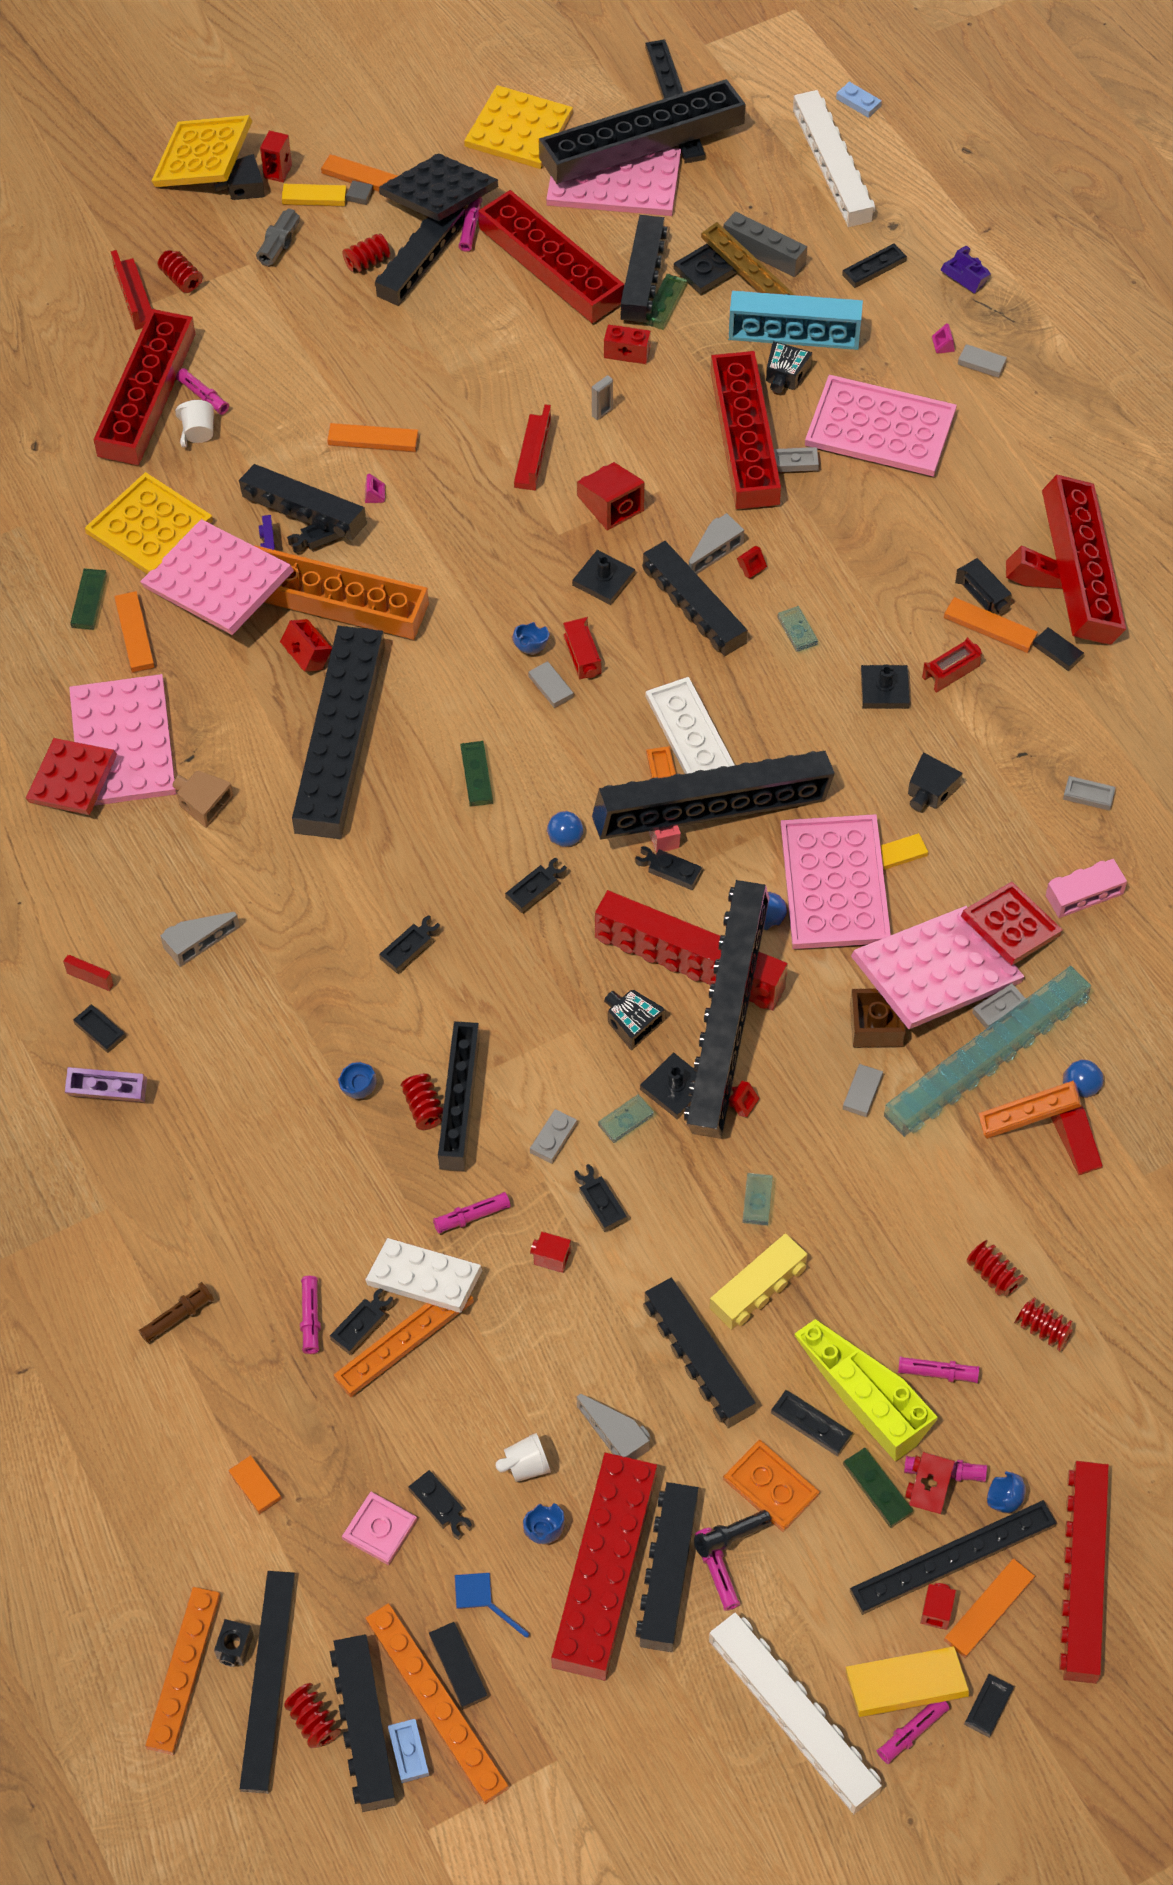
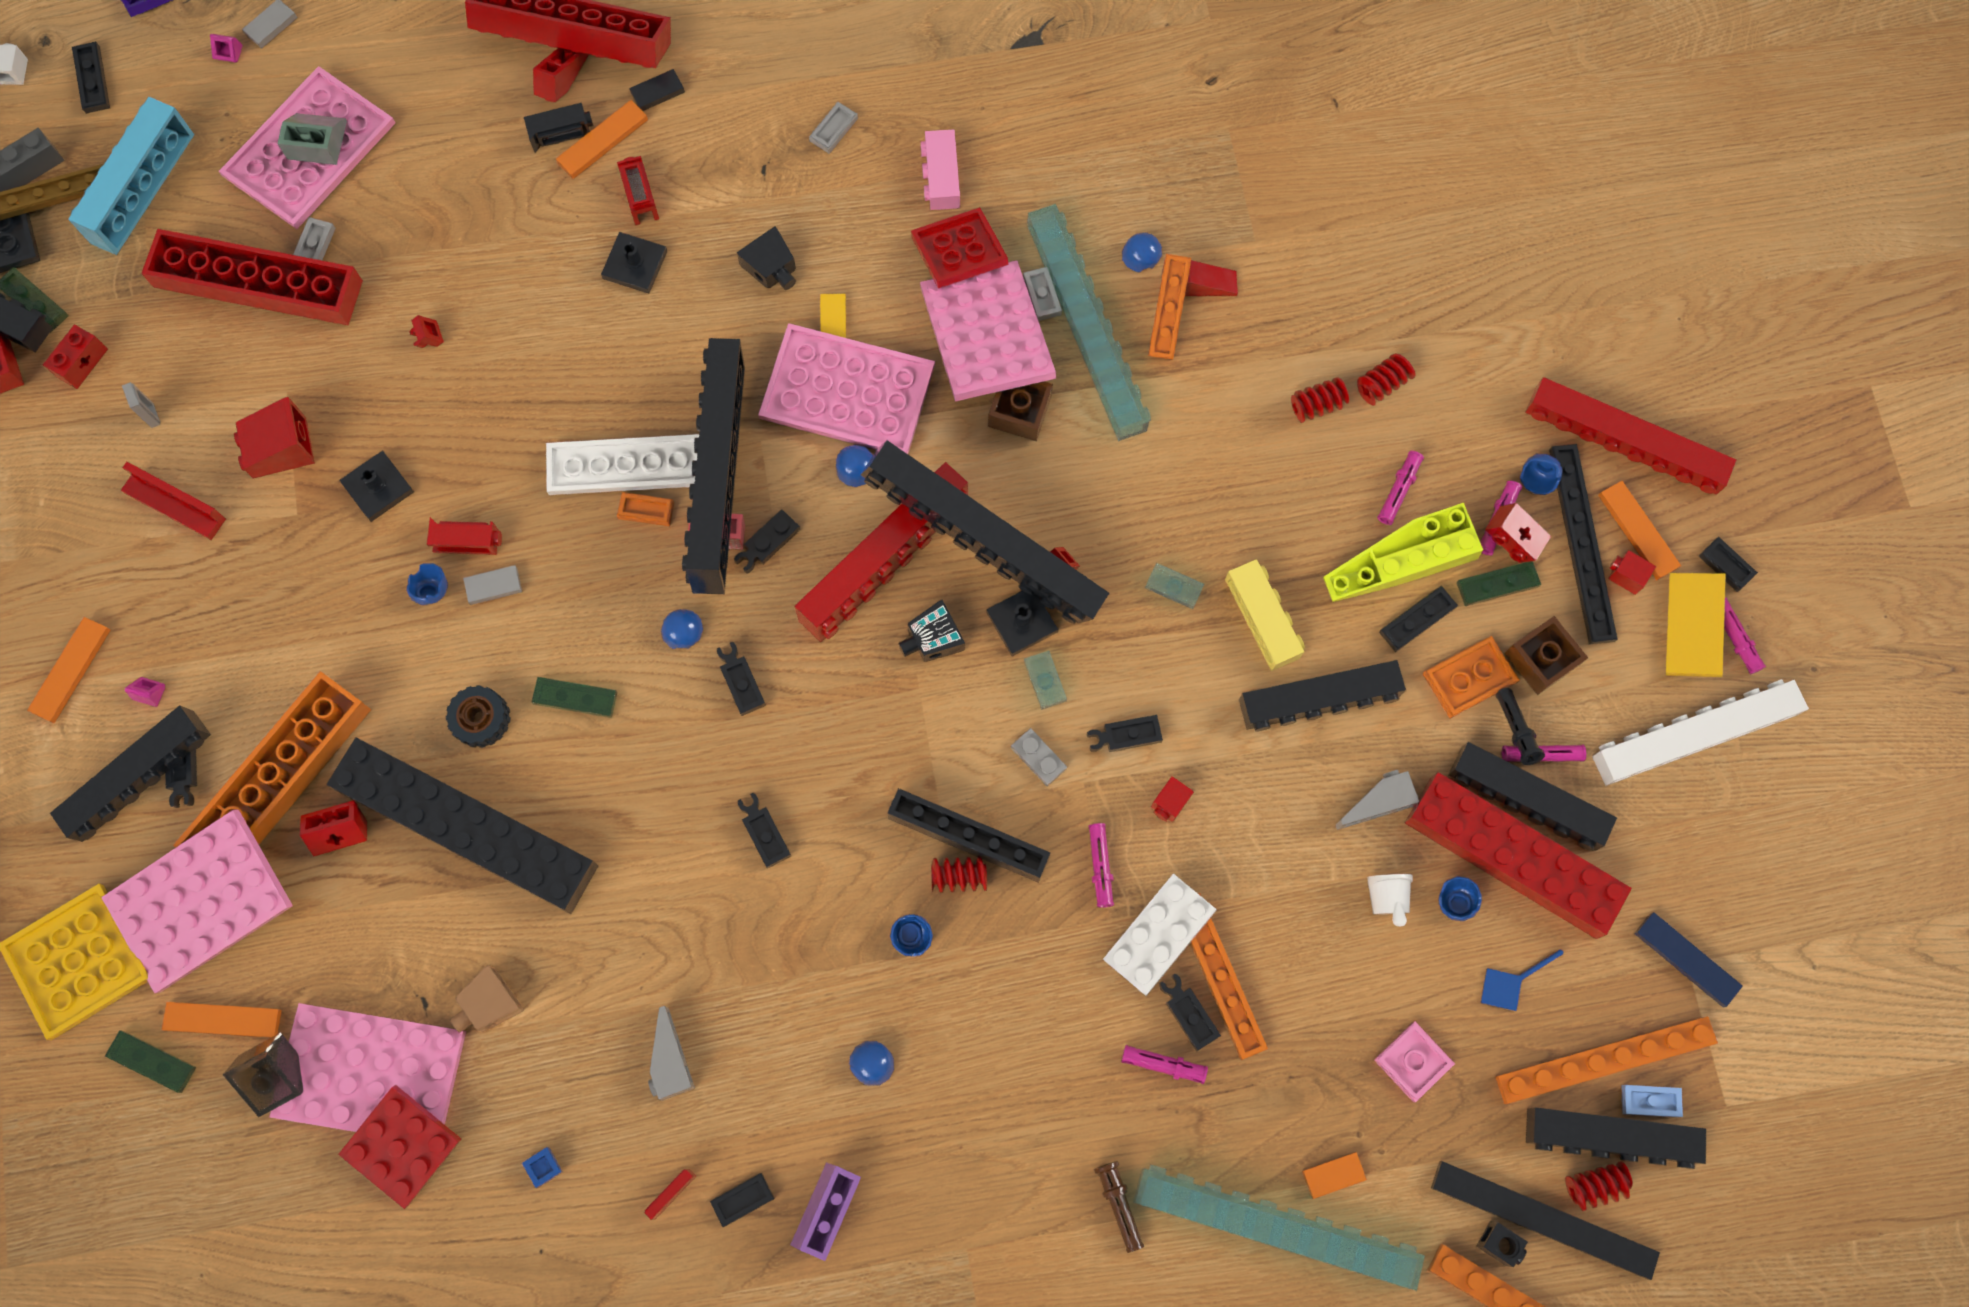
camera: 75 degrees left, 15 degrees up
(84, 878) = (542, 1167): none -> blue plate
(99, 669) = (267, 1075): none -> clear smoke slope
(192, 1448) = (1279, 1229): none -> clear light blue brick
(239, 1087) = (871, 1063): none -> blue hair
(266, 532) = (151, 827): dark purple plate -> none
(433, 711) = (464, 708): none -> black wheel
(439, 1503) = (1404, 994): black plate -> none
(458, 1665) = (1575, 1027): black tile -> none
(559, 1757) = (1688, 959): none -> dark blue tile
(694, 598) = (447, 404): black brick -> none
(718, 540) = (382, 351): light grey slope -> none
(787, 366) = (185, 209): black torso -> none
(797, 628) = (529, 318): clear light blue plate -> none
(814, 1540) = (1546, 655): none -> reddish brown brick
(862, 1090) = (1087, 449): light grey tile -> none
(885, 420) = (312, 138): none -> sand green slope

